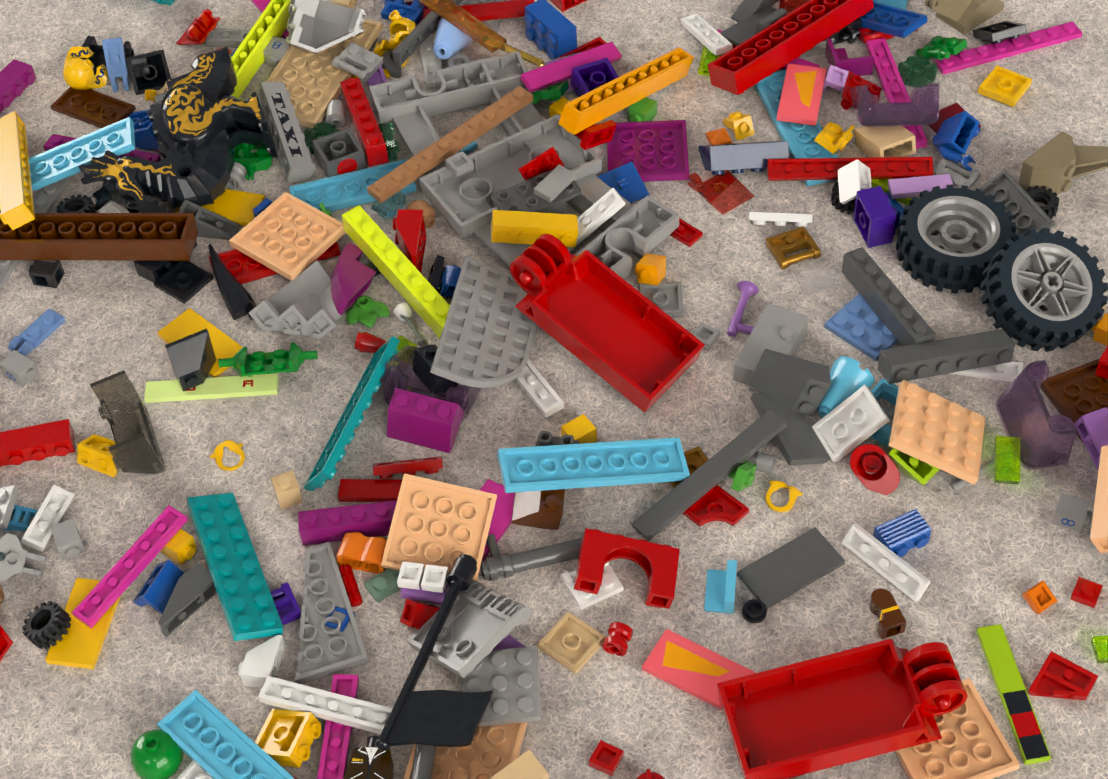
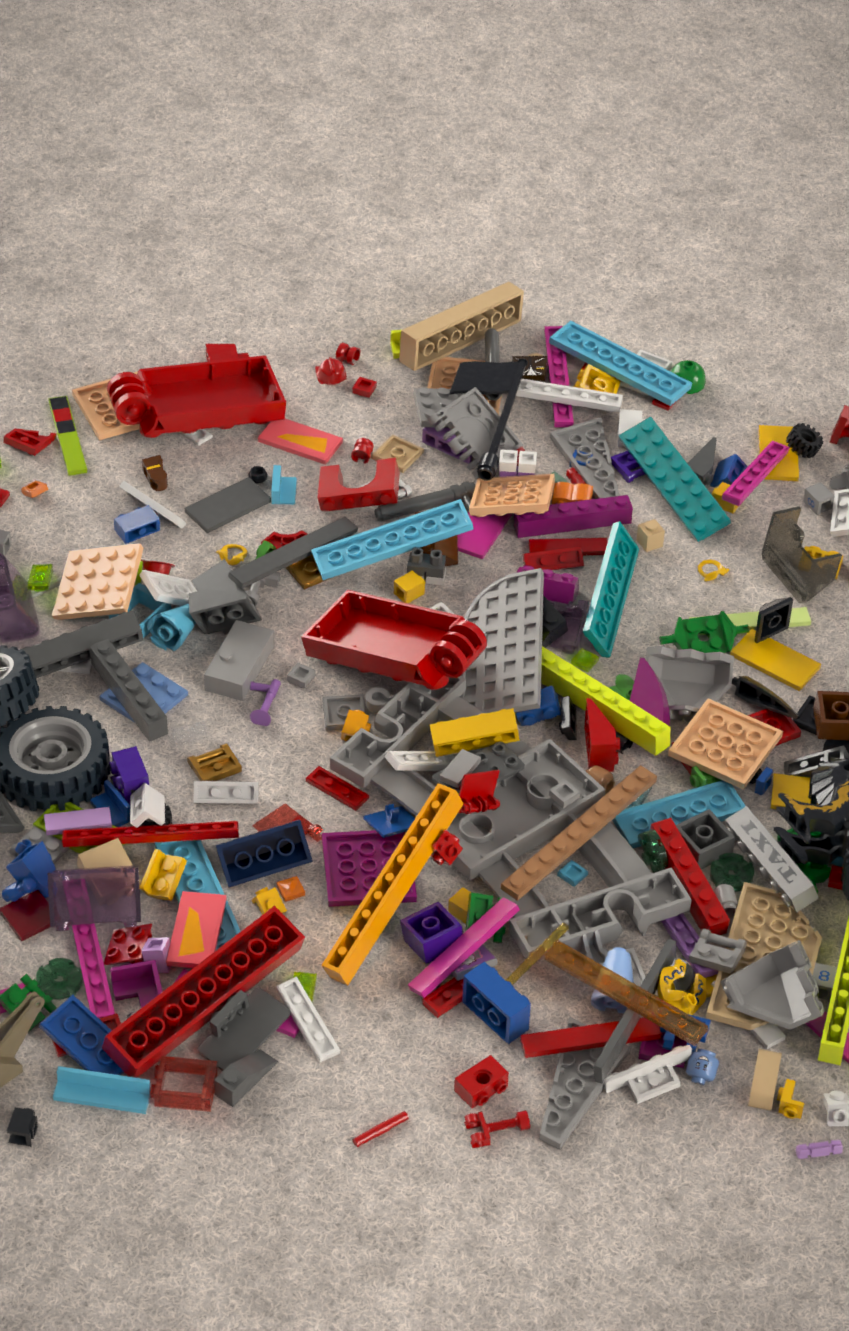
camera: 170 degrees right, 5 degrees down
(368, 343) = (614, 659): red cone -> none

